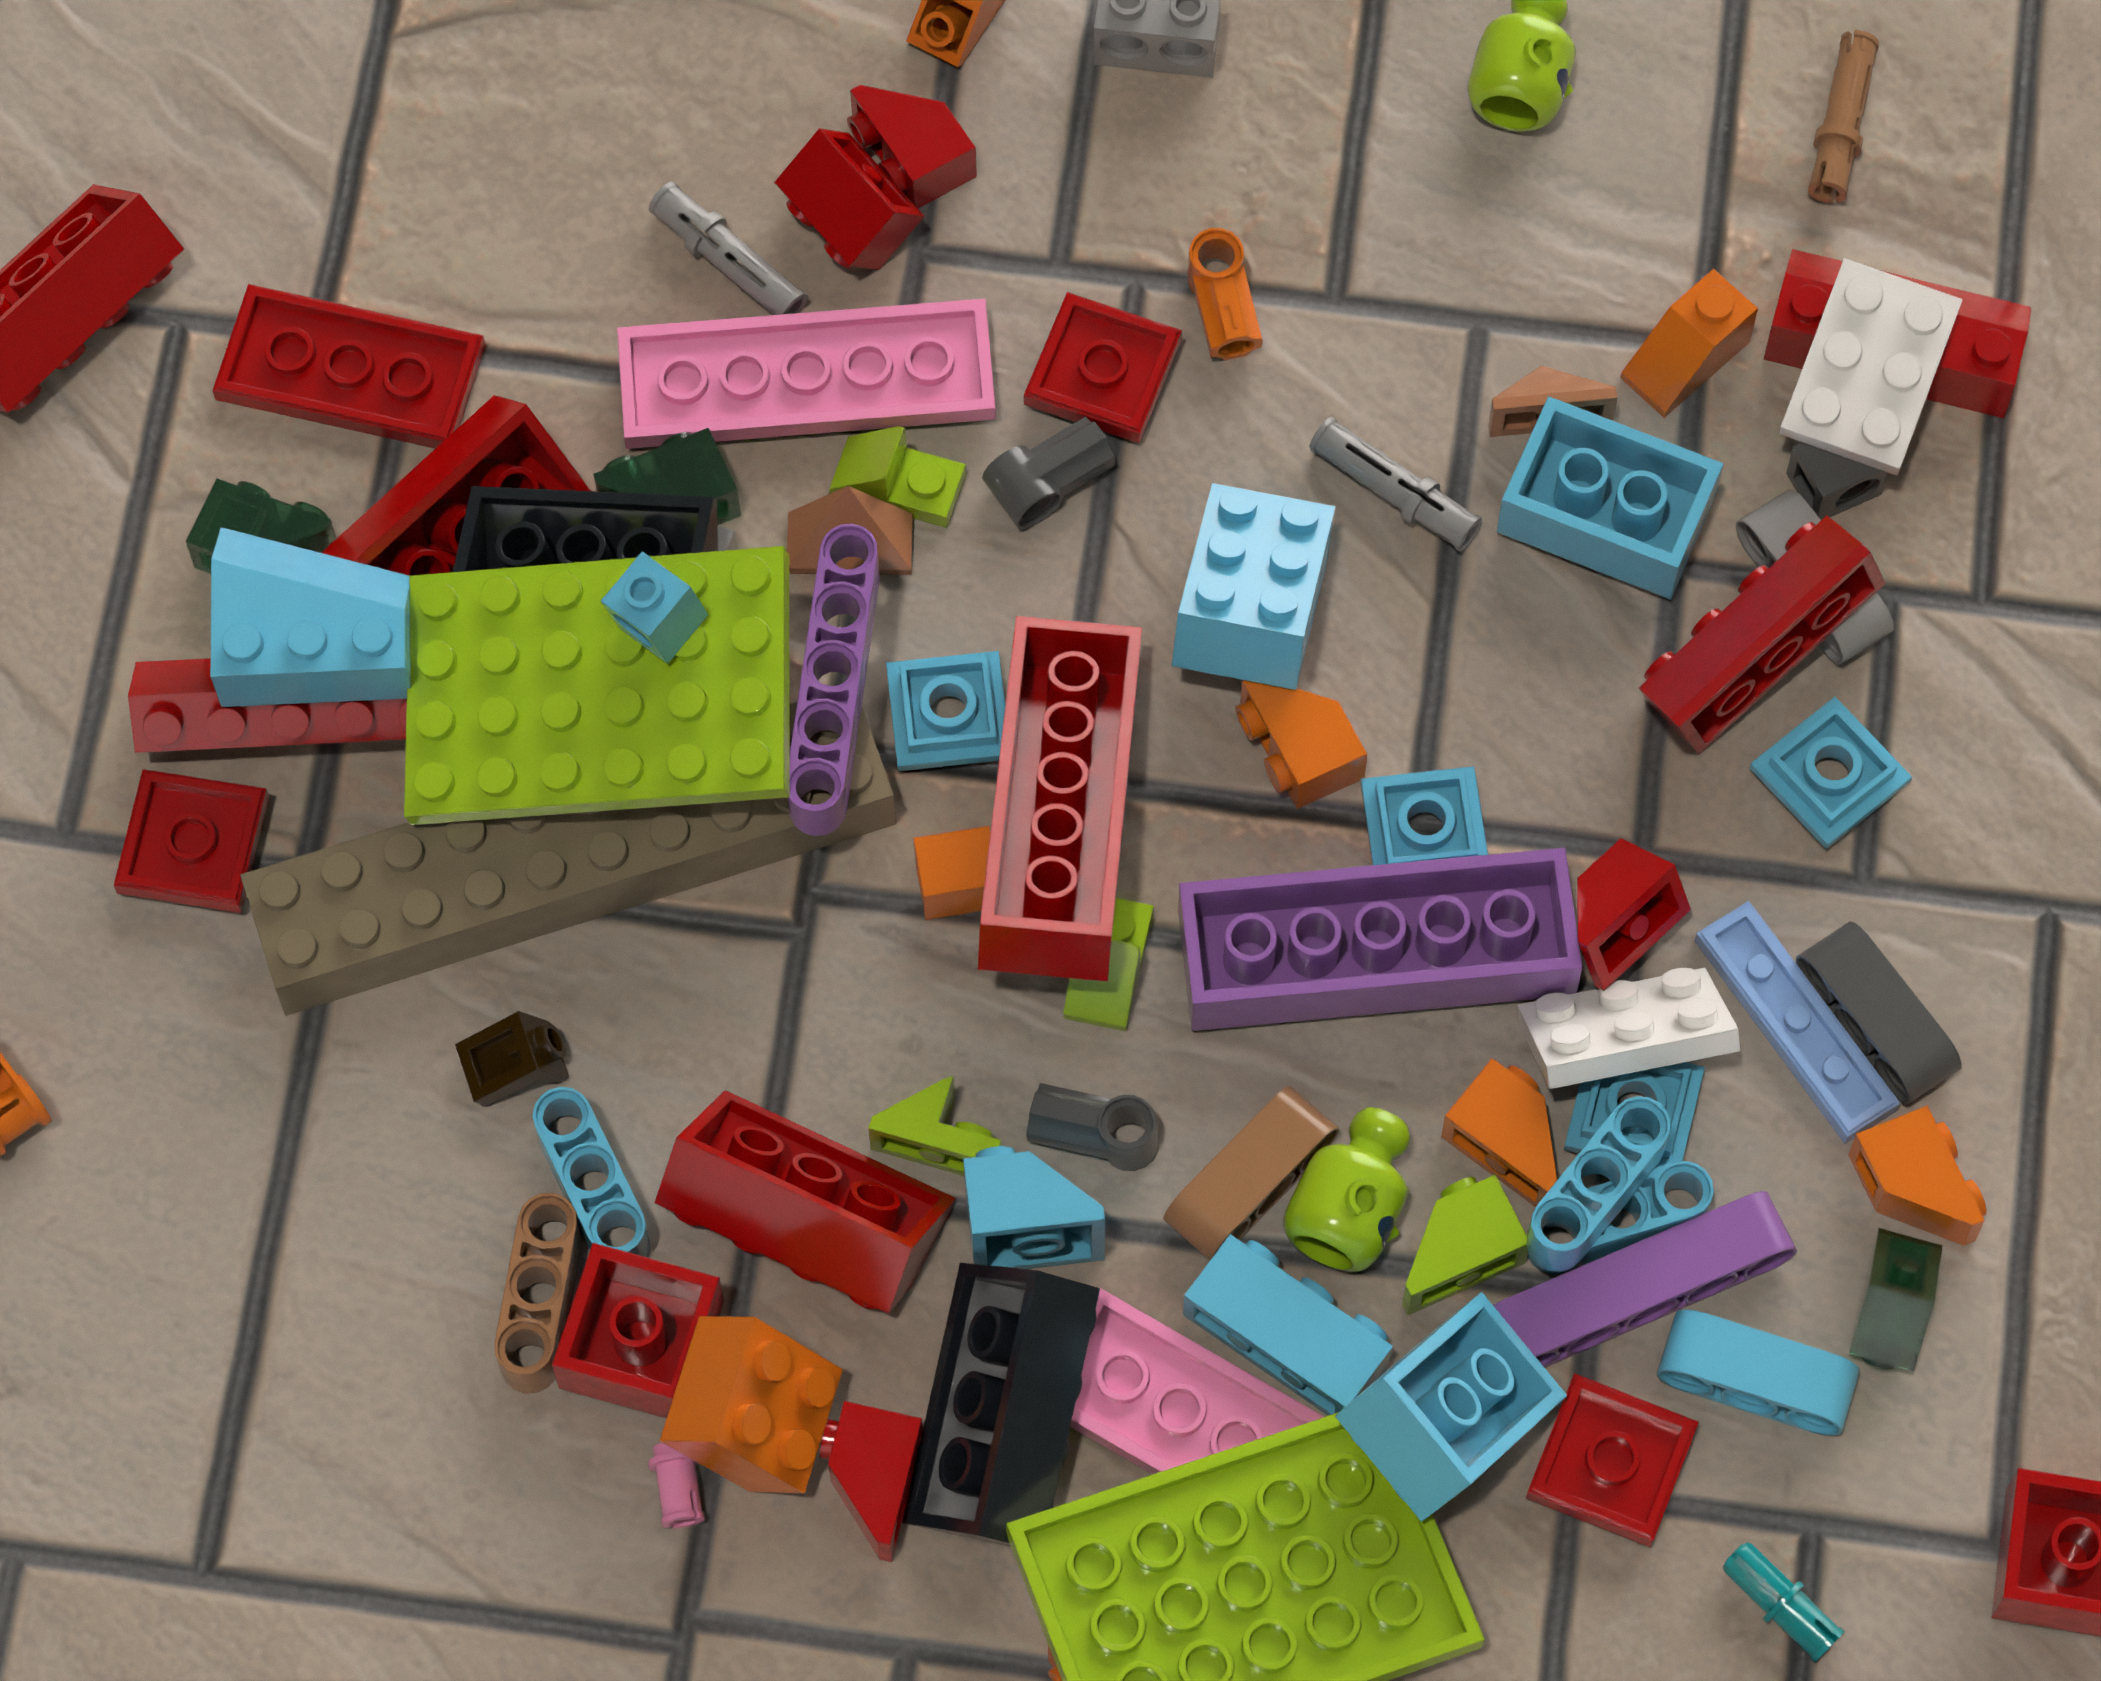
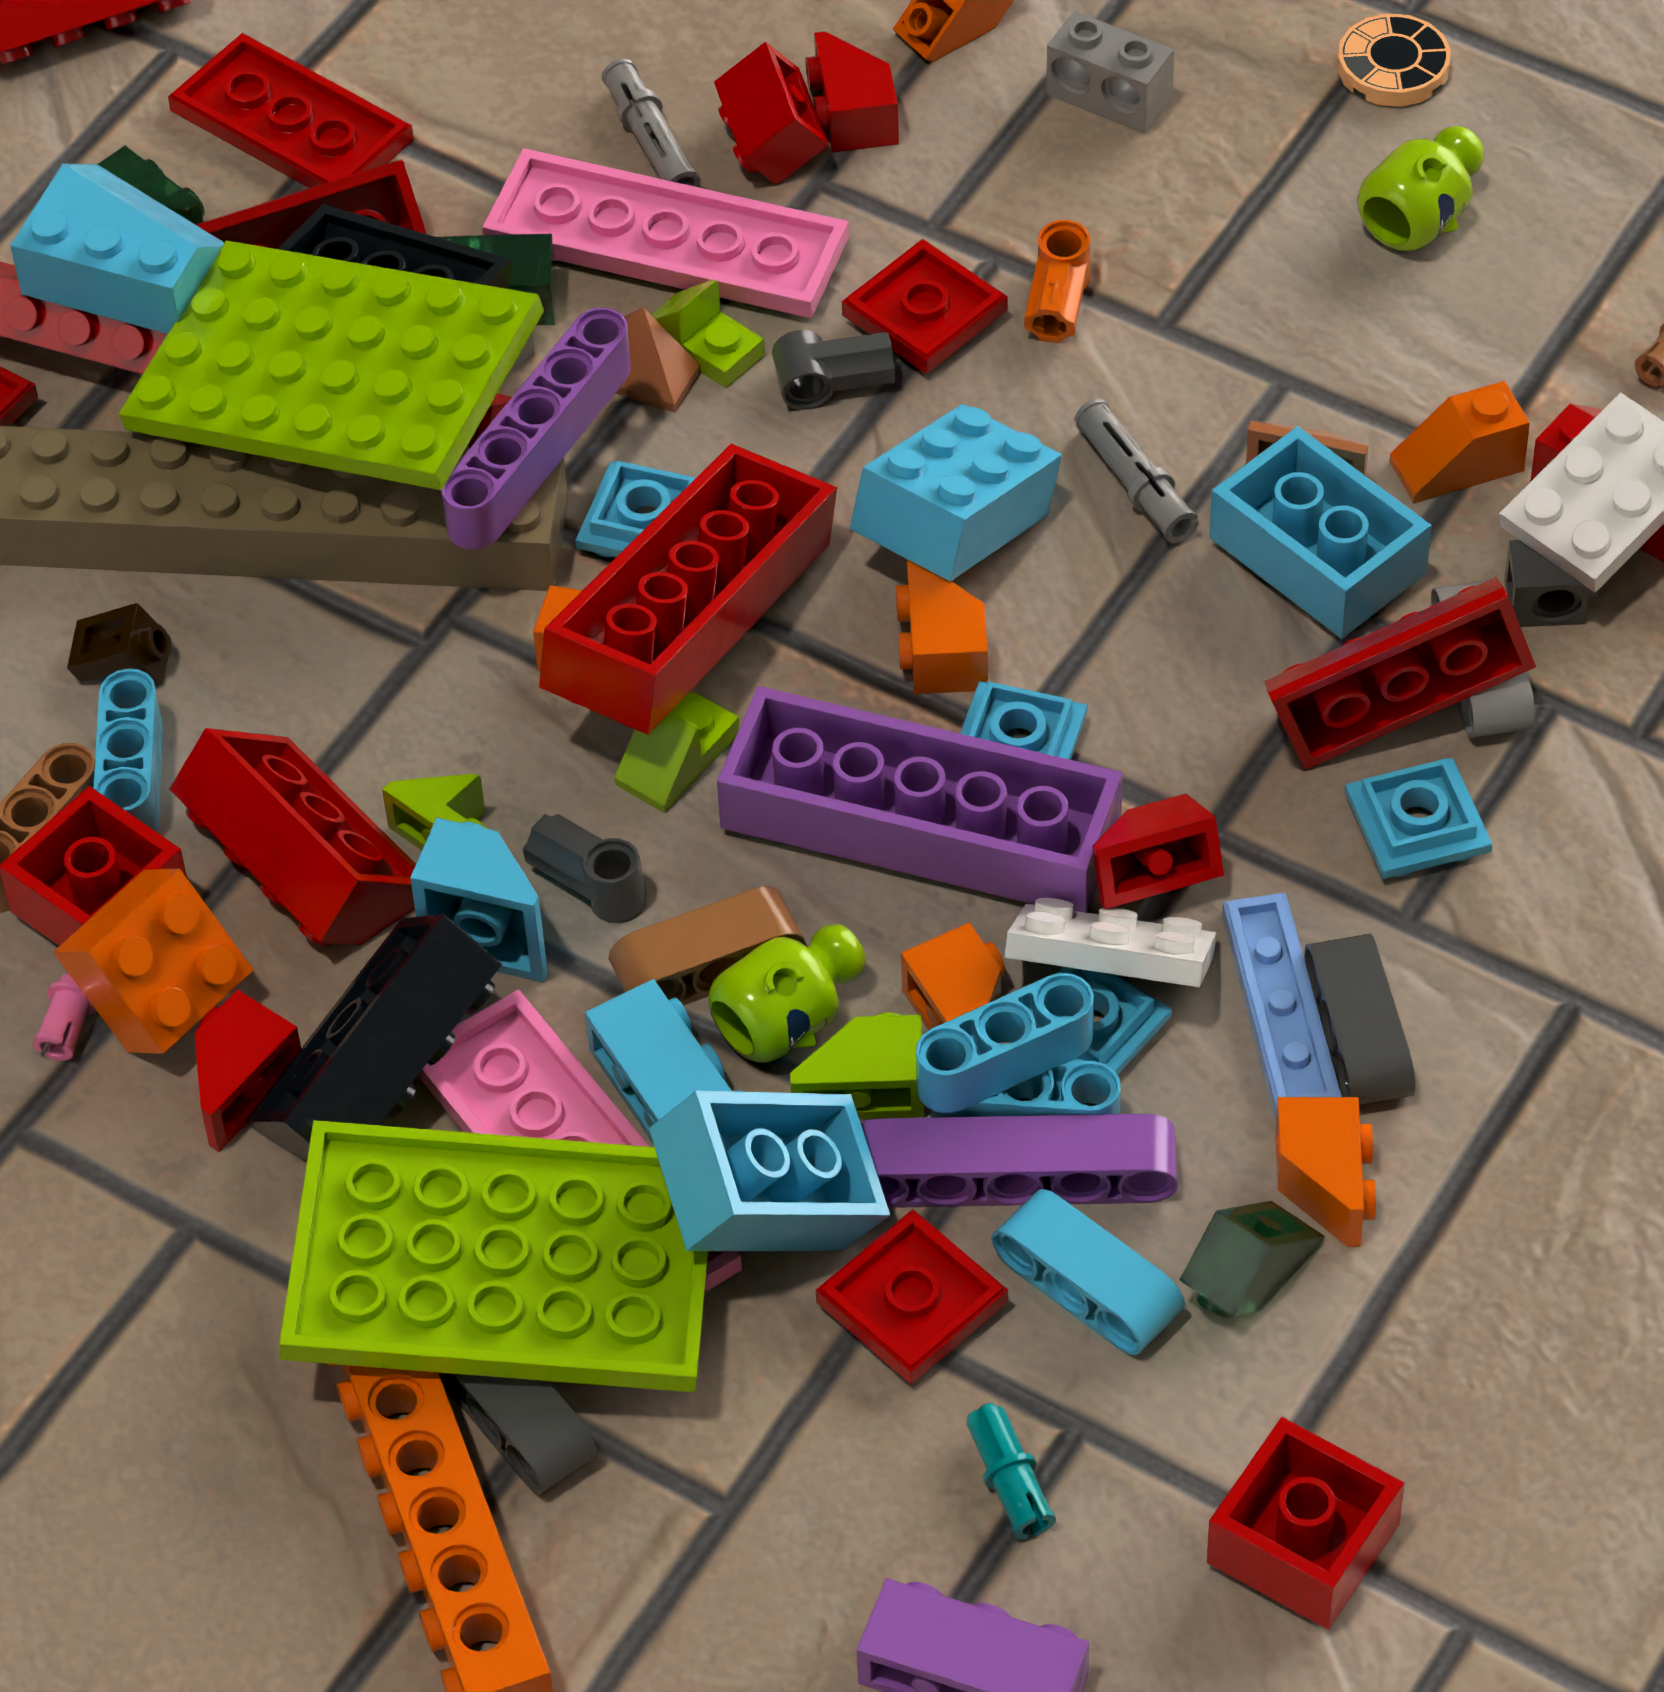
camera: 25 degrees right, 15 degrees down
(654, 607) = (396, 295): medium azure brick -> none

